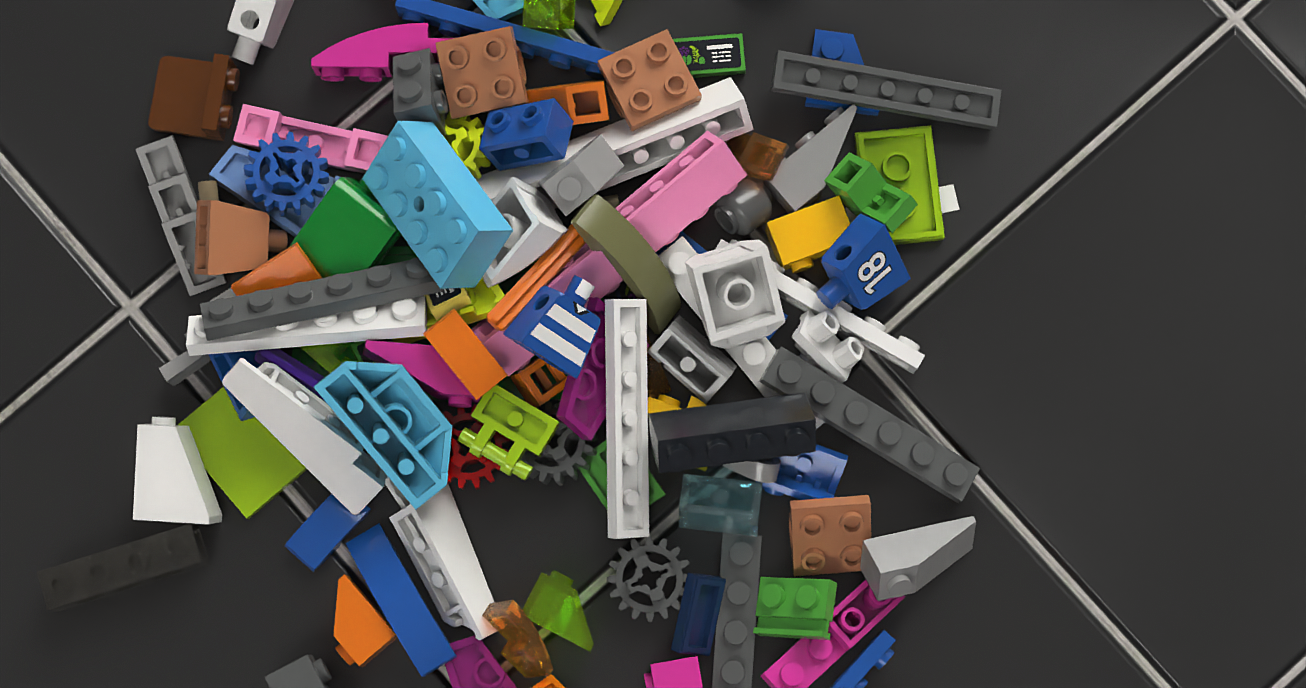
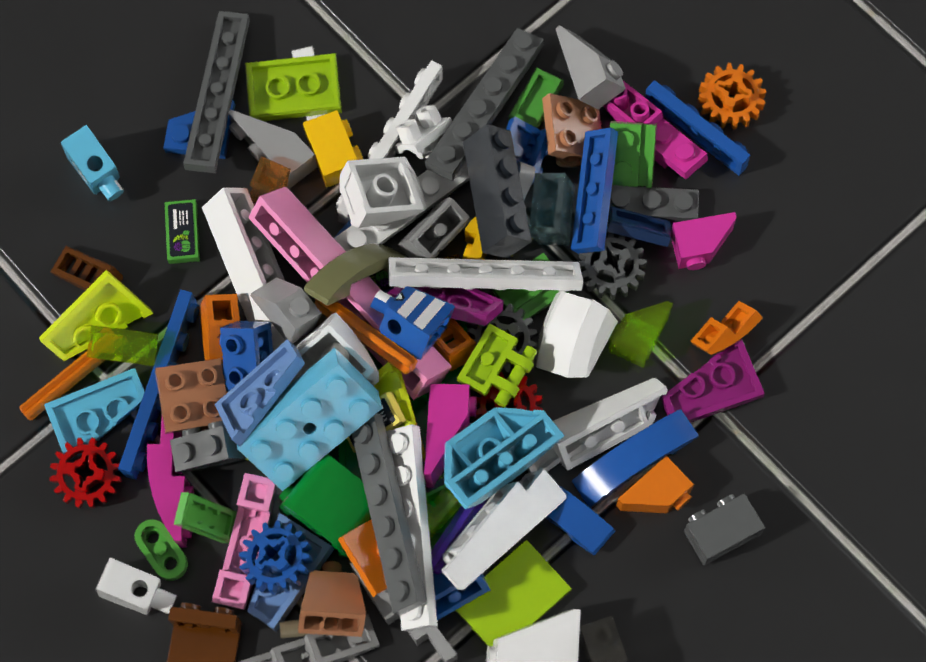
camera: 85 degrees left, 10 degrees down
(307, 44) = (161, 551): none -> bright green plate
(338, 92) = (205, 517): none -> bright green plate
(465, 354) = (435, 392): orange slope -> none
(469, 143) = (257, 392): none -> medium blue wing
(524, 645) = (667, 358): clear orange slope -> none
(549, 526) = (573, 335): none -> white slope
(648, 80) = (204, 263): nougat plate -> none
(738, 557) = (594, 190): none -> blue plate
(744, 208) = (312, 195): dark grey head -> none
(862, 265) = (359, 103): blue torso -> none
(867, 192) = (303, 99): bright green brick -> none
(886, 492) = (530, 103): none -> bright green tile

